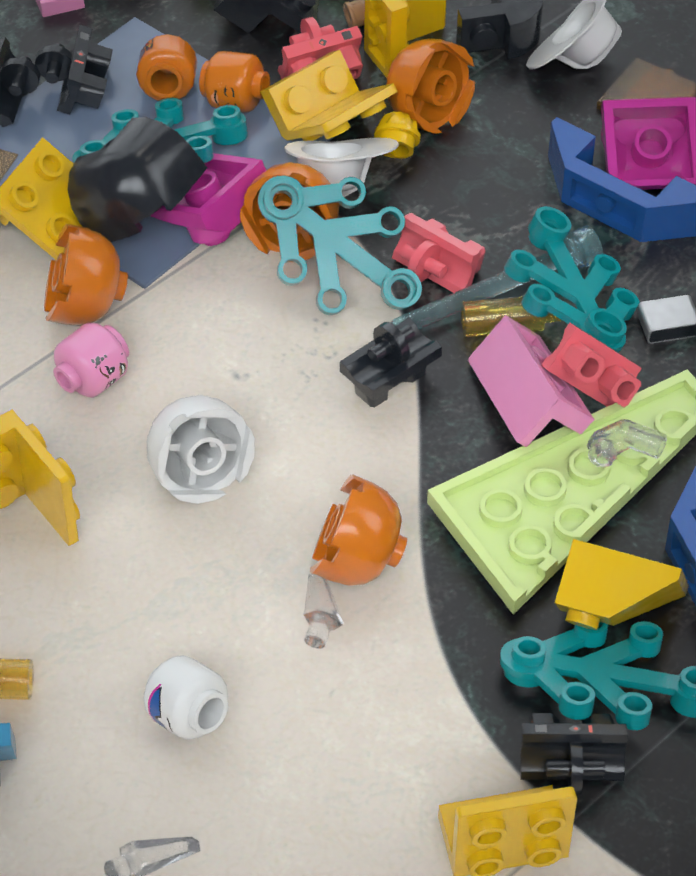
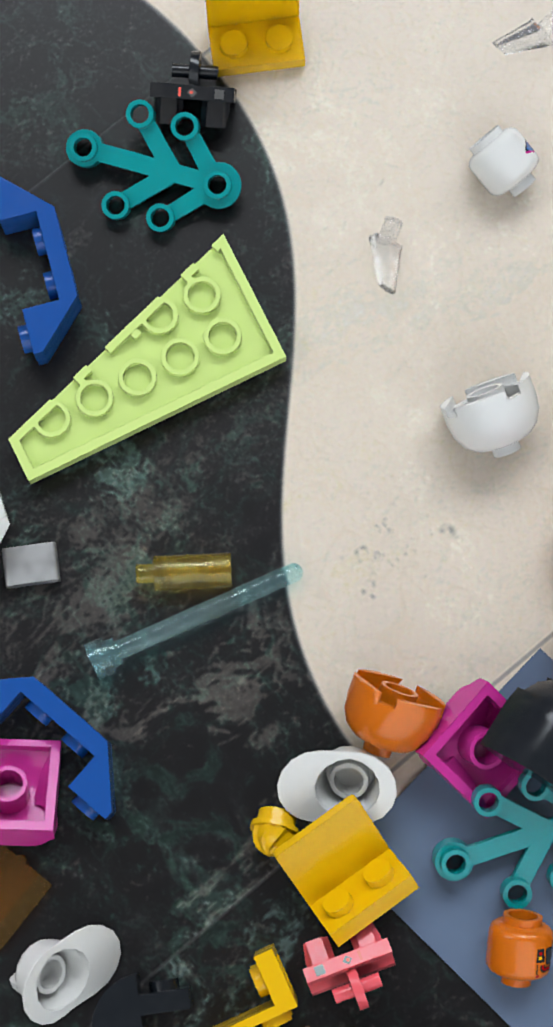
camera: 175 degrees left, 30 degrees up
(233, 80) = (445, 926): orange head -> none
(332, 239) = (400, 674): teal plant -> none
(359, 535) = (351, 304): orange cylinder -> none
(391, 358) = (307, 507): black hips -> none
(432, 83) = (238, 896): orange cylinder -> none
(438, 255) = (253, 649): coral hips -> none
(520, 387) = (179, 470): bright pink panel -> none
(548, 232) = (116, 585): teal plant -> none
(594, 368) = (121, 470): coral hips -> none
(614, 585) = (131, 233): yellow slope -> none
(624, 435) = (102, 385): clear arm -> none

